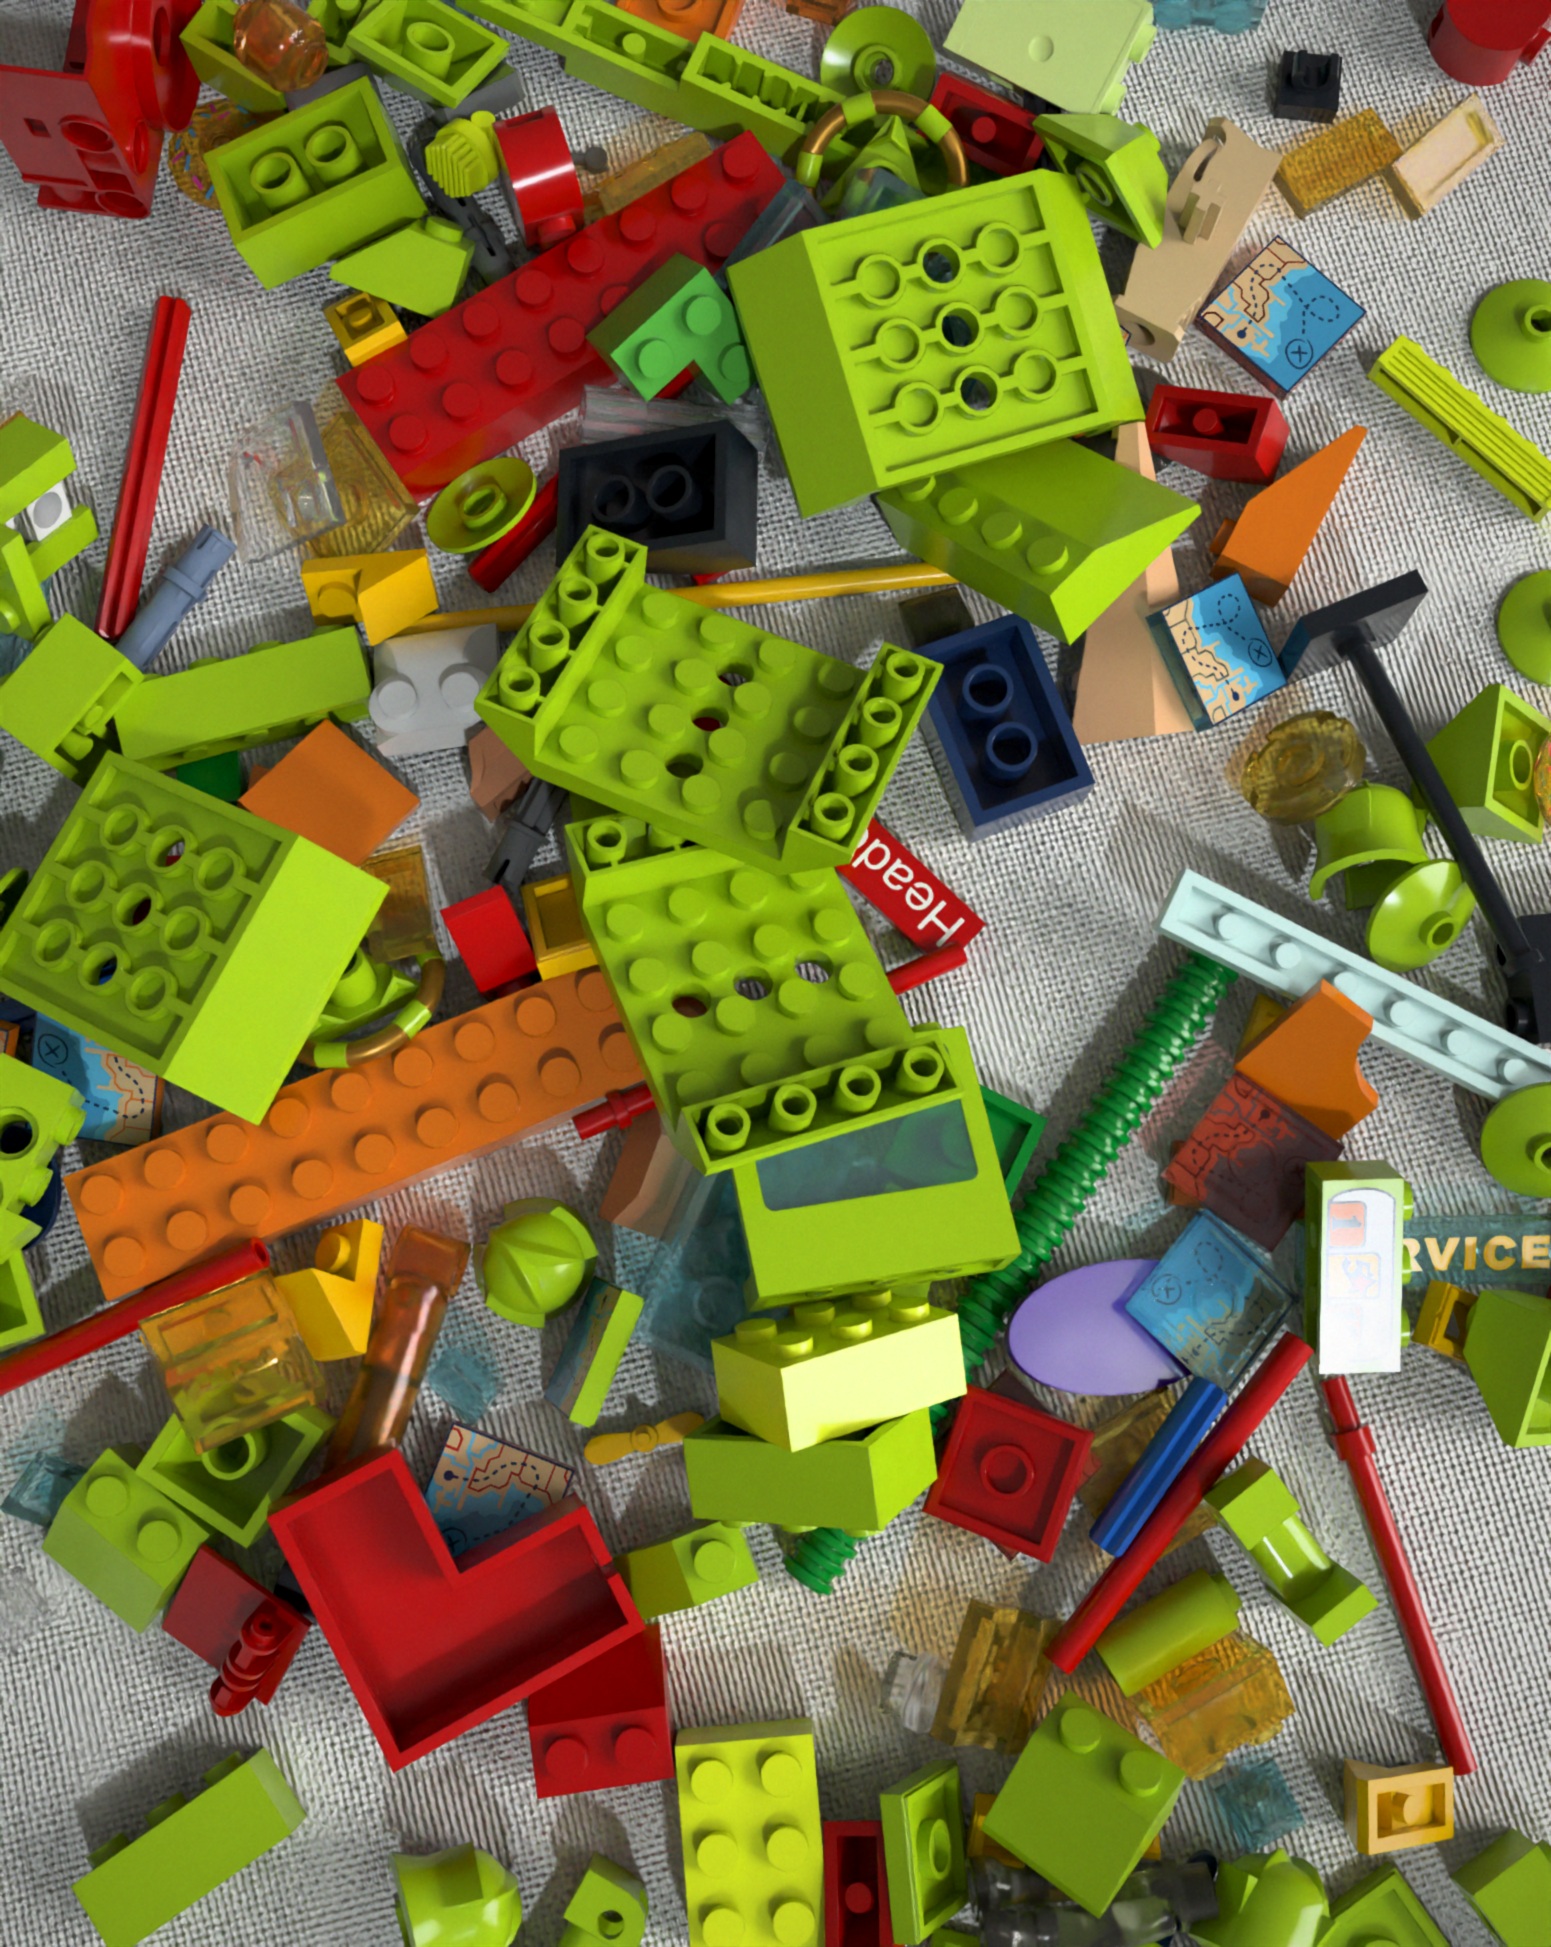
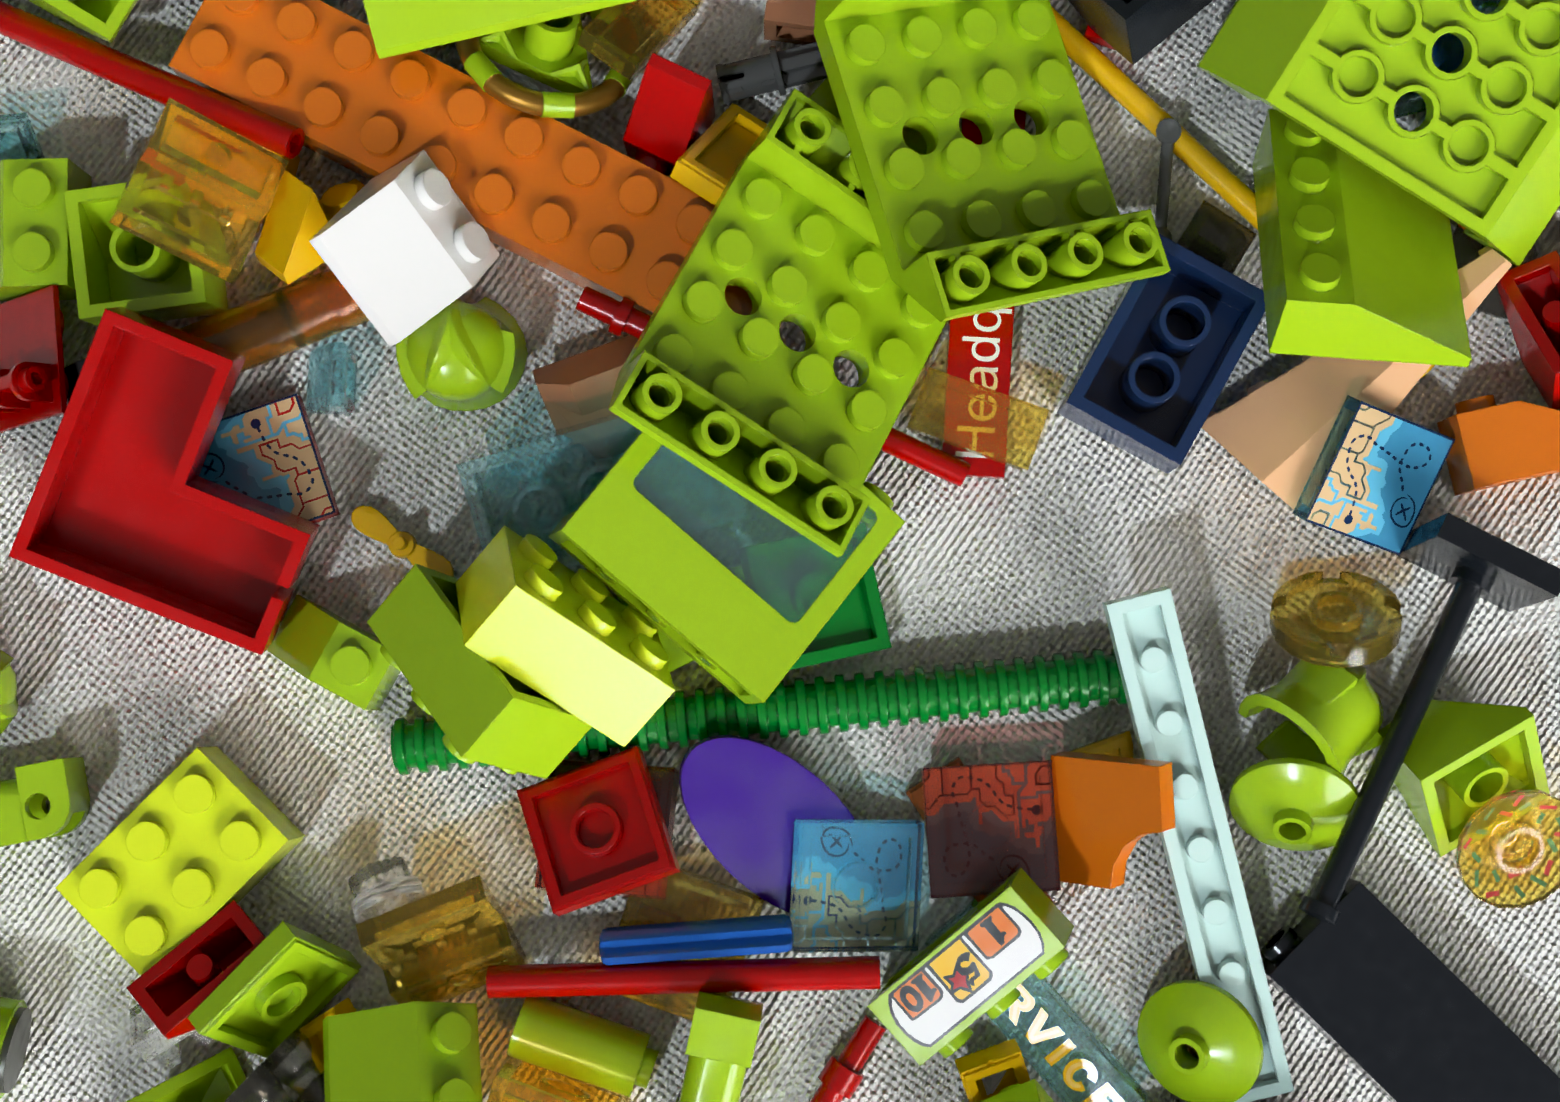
camera: 50 degrees right, 5 degrees up
(420, 1233) = (405, 247): none -> white slope
(593, 1351) = (429, 450): tile -> none
(605, 1721) = (177, 683): red slope -> none
(827, 586) = (1168, 133): none -> dark grey hinge
(926, 906) = (977, 419): none -> clear yellow tile

